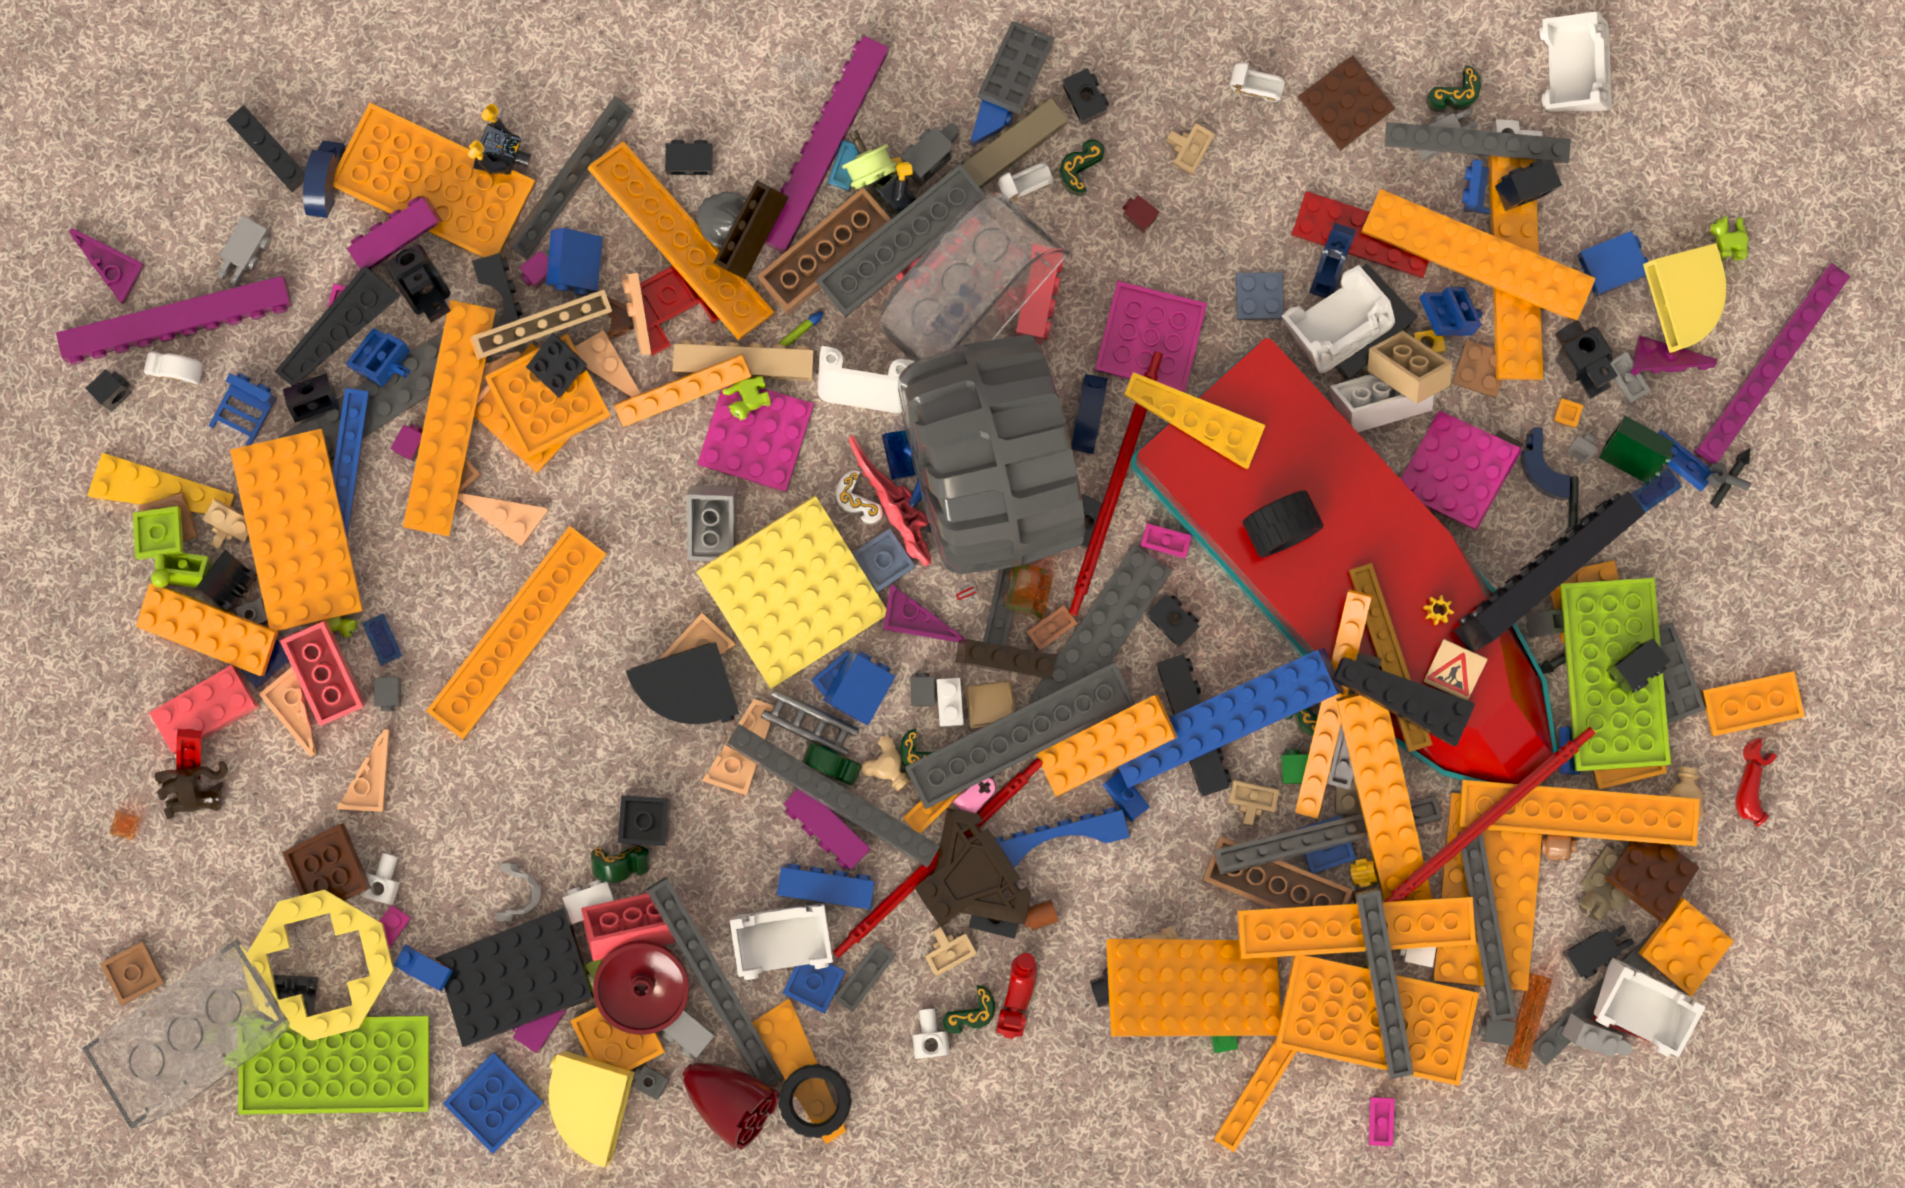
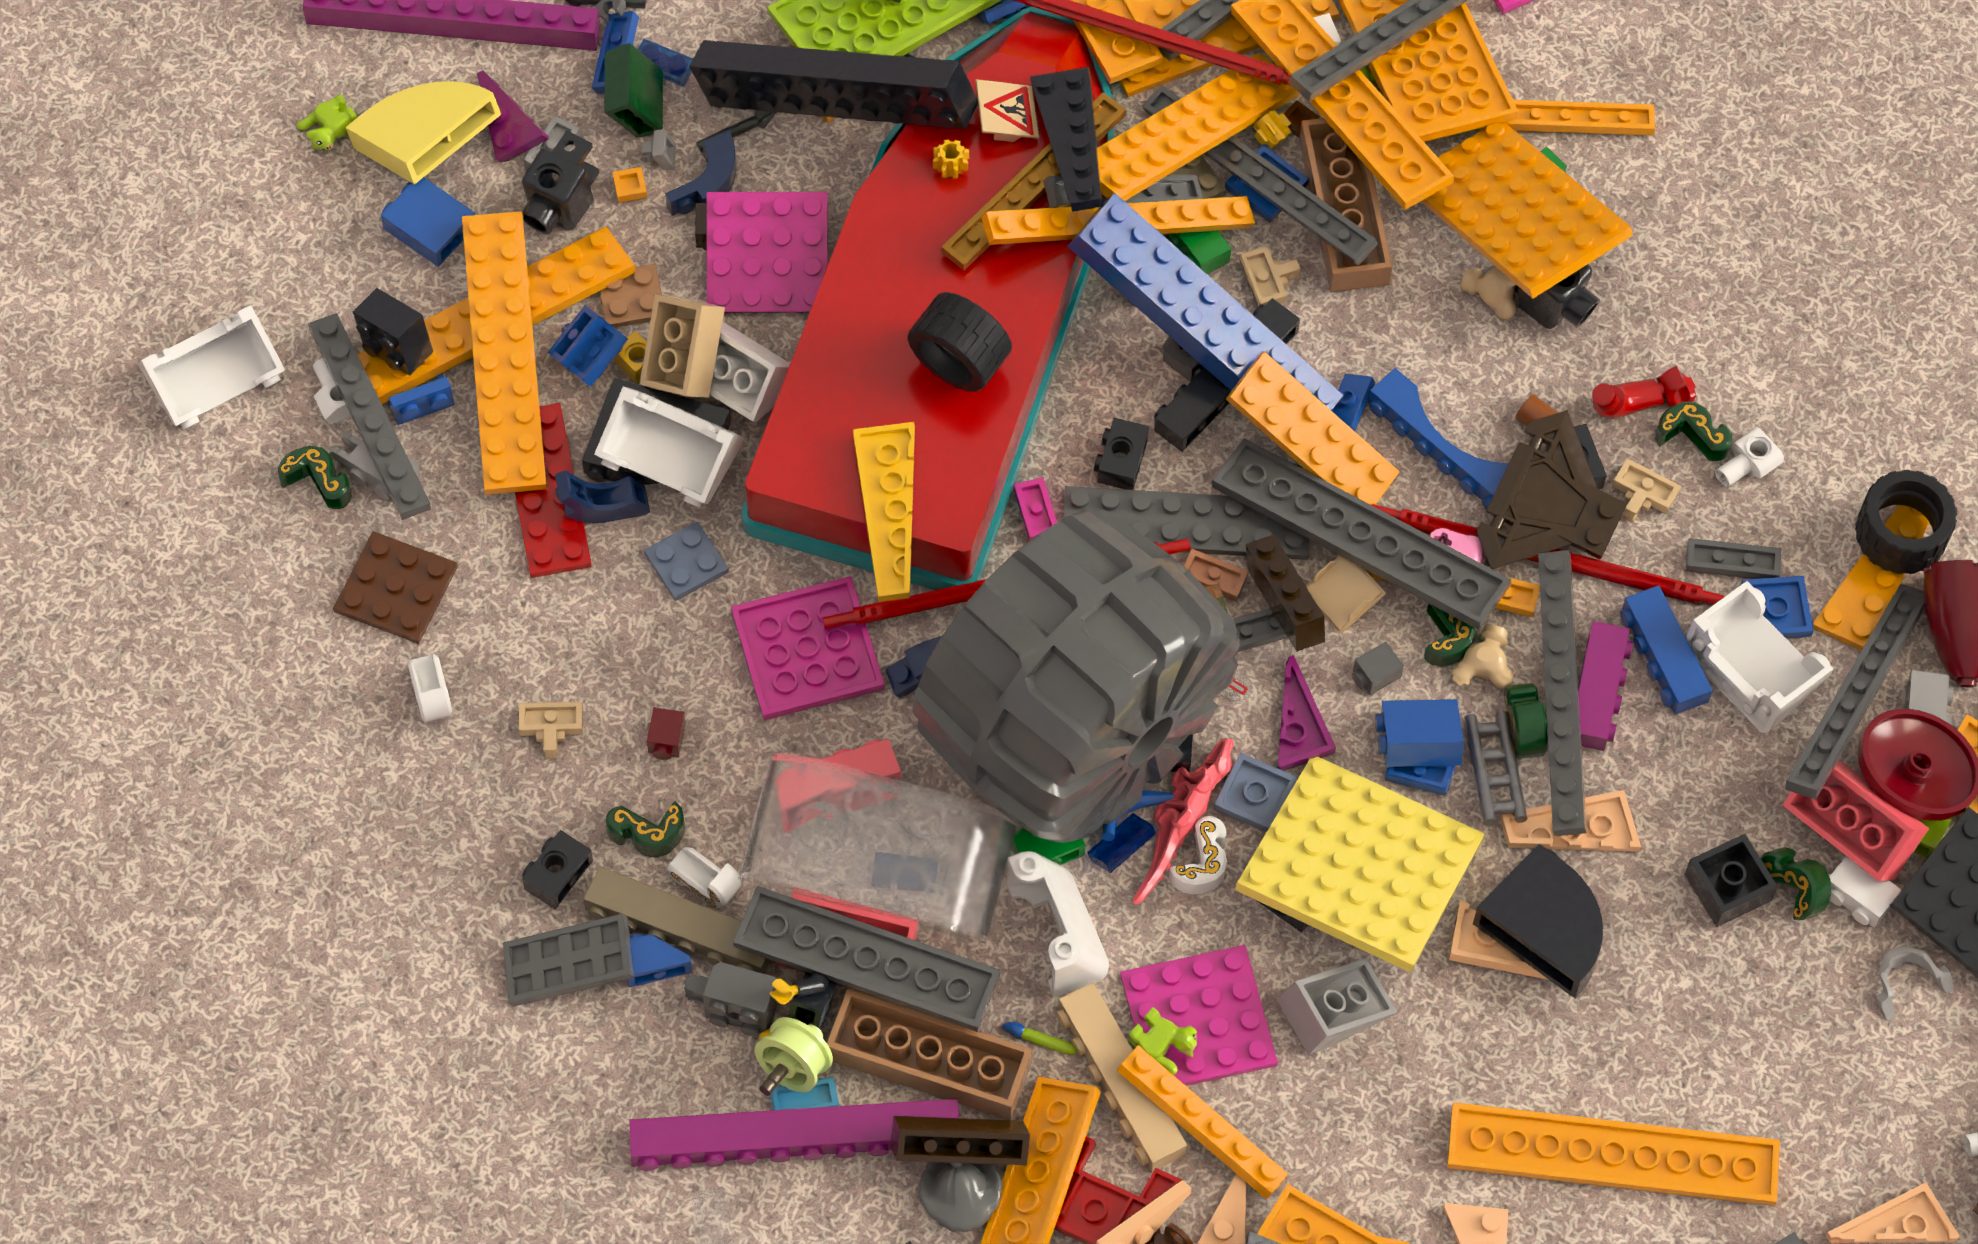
camera: 120 degrees left, 20 degrees down
(950, 702) = (1371, 629): white brick -> none

